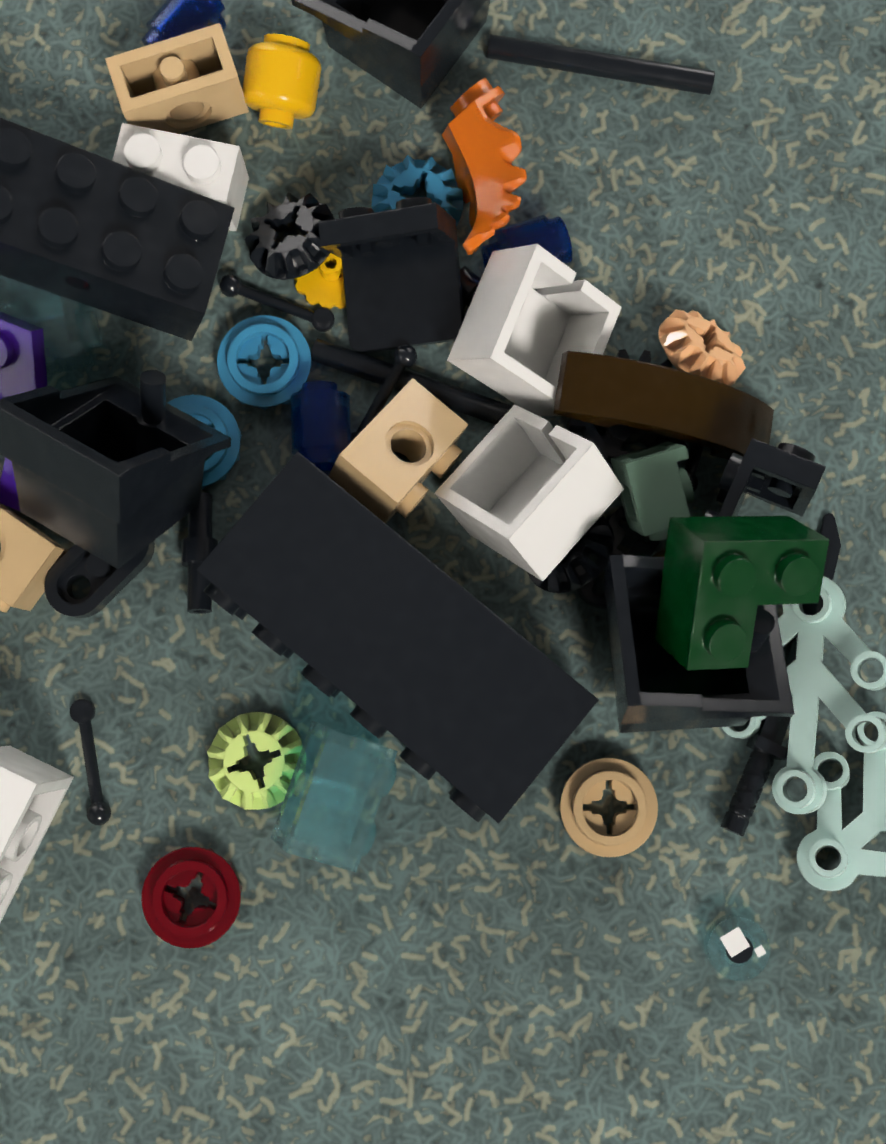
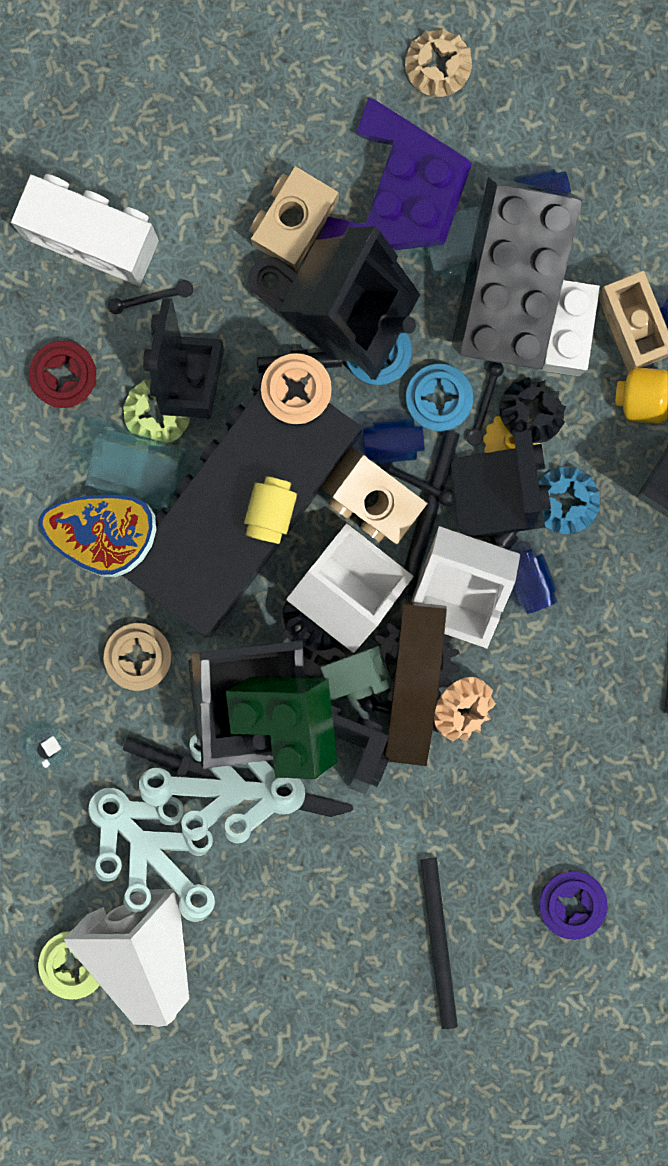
camera: 90 degrees right, 5 degrees up
(194, 717) = (181, 368): none -> black bracket
(202, 541) = (296, 368): none -> light nougat gear
(414, 588) = (270, 510): none -> light yellow brick
(430, 850) = (101, 532): none -> shield
(484, 161) = (591, 546): orange plant -> none

